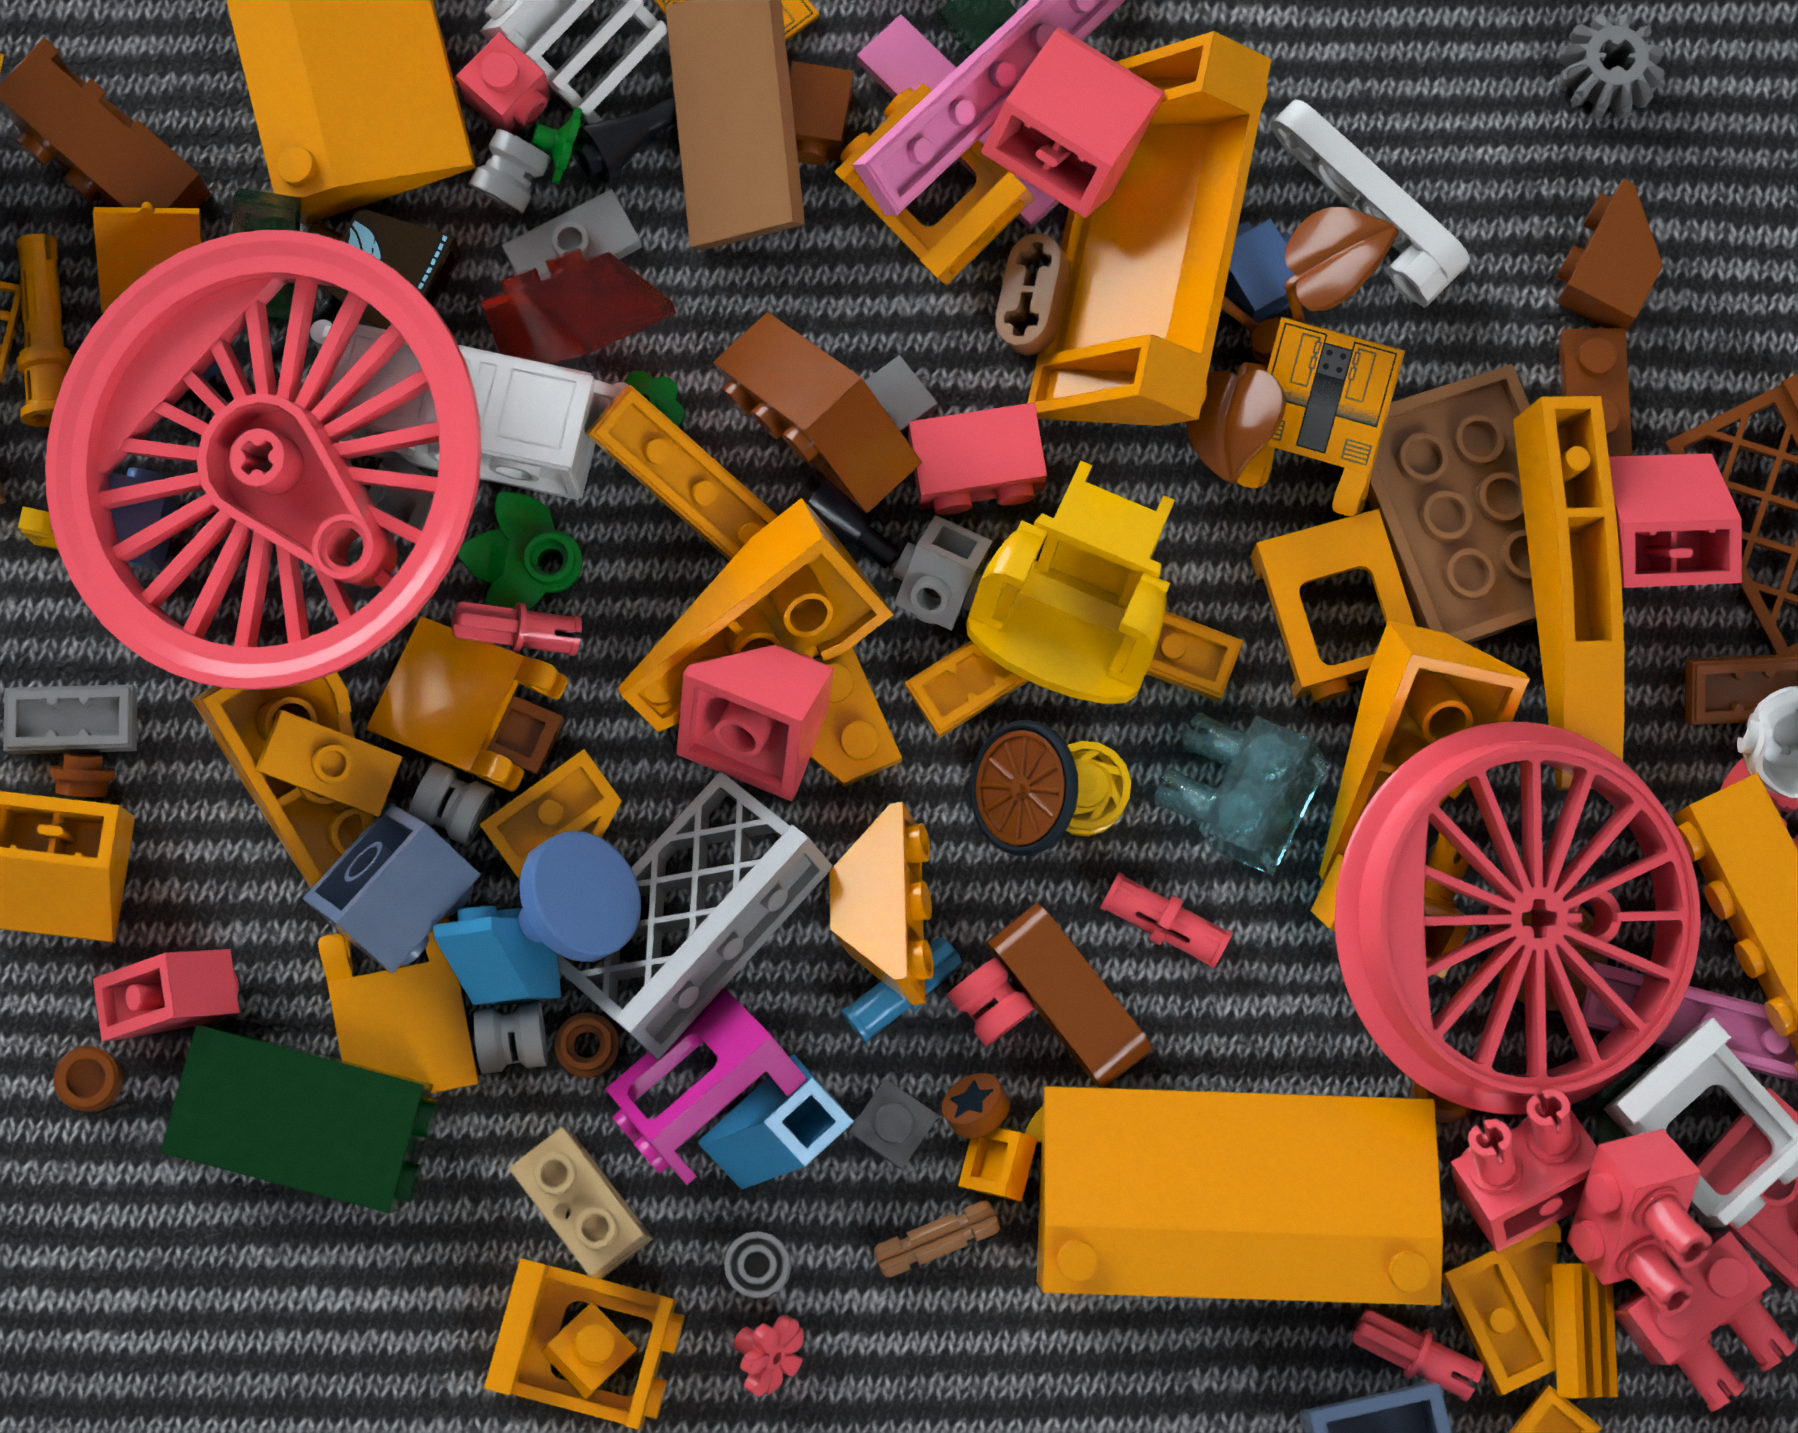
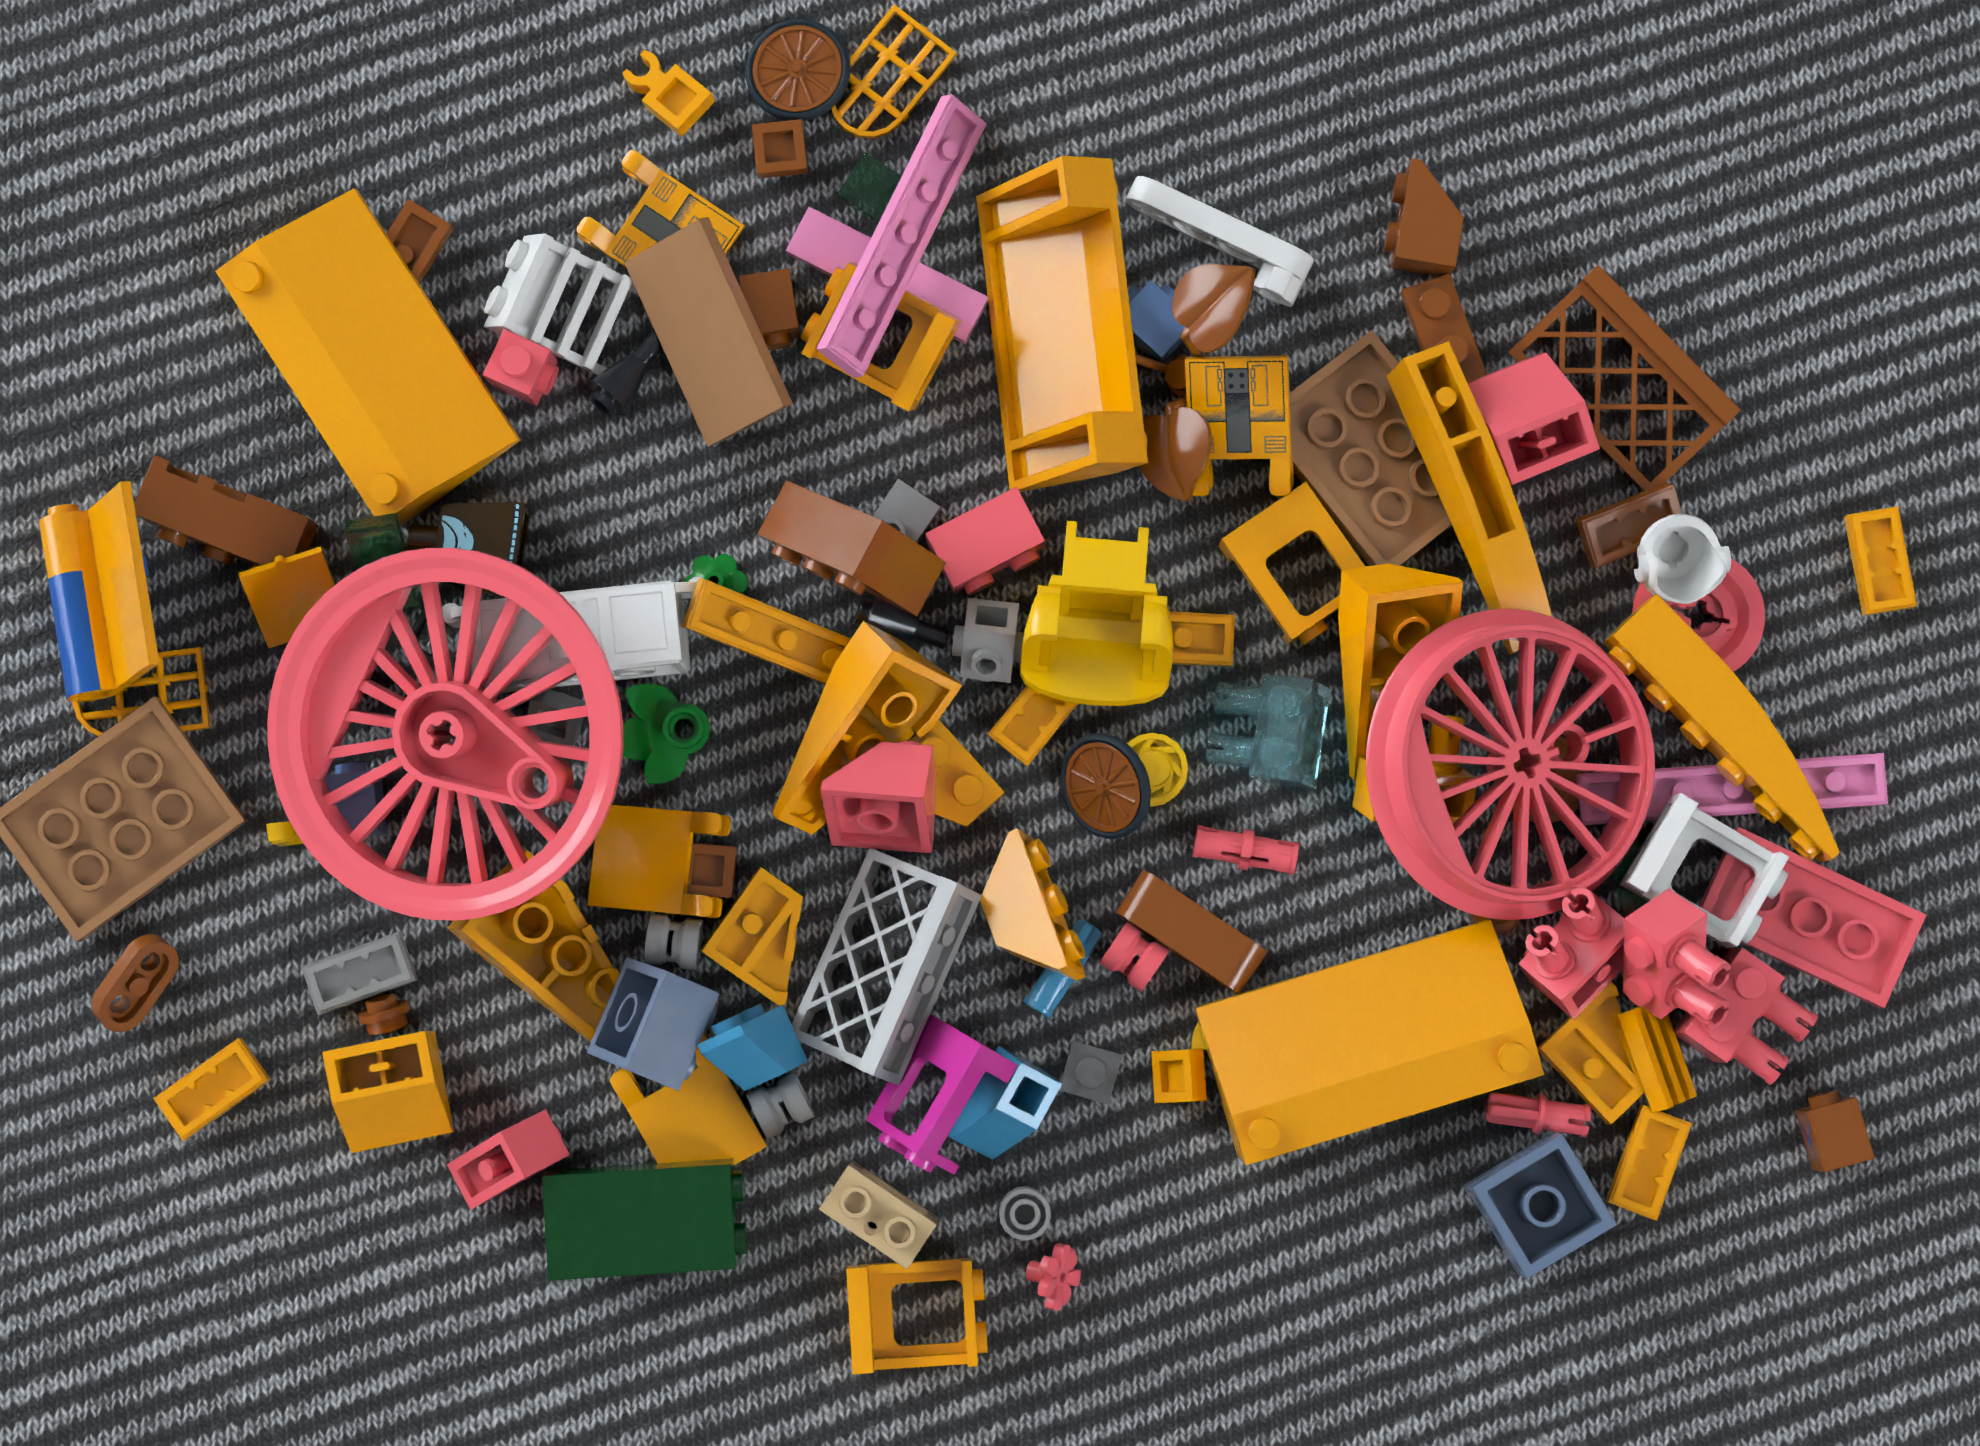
camera: 15 degrees left, 5 degrees up
(44, 357) = (238, 700): light orange pin -> none
(88, 1079) = (470, 1241): dark orange tile -> none
(328, 763) = (571, 944): light orange plate -> none
(509, 171) = (548, 434): light grey wheel -> none
(515, 627) = (676, 790): coral axle -> none
(558, 142) = (578, 398): green plant -> none
(568, 1036) = (822, 1090): dark orange plate -> none
(572, 307) = (638, 531): clear red slope -> none
(578, 897) = (797, 983): medium blue tile -> none
(588, 1350) = (919, 1318): light orange plate -> none
(593, 226) = (615, 475): light grey plate -> none
(937, 1238) = (1151, 1147): medium nougat axle -> none
(975, 1105) = (1148, 1038): dark orange tile -> none
(1041, 296) = (974, 399): medium nougat beam -> none
(1072, 123) = (974, 257): coral slope -> none
(1596, 48) = (1360, 54): light grey gear -> none

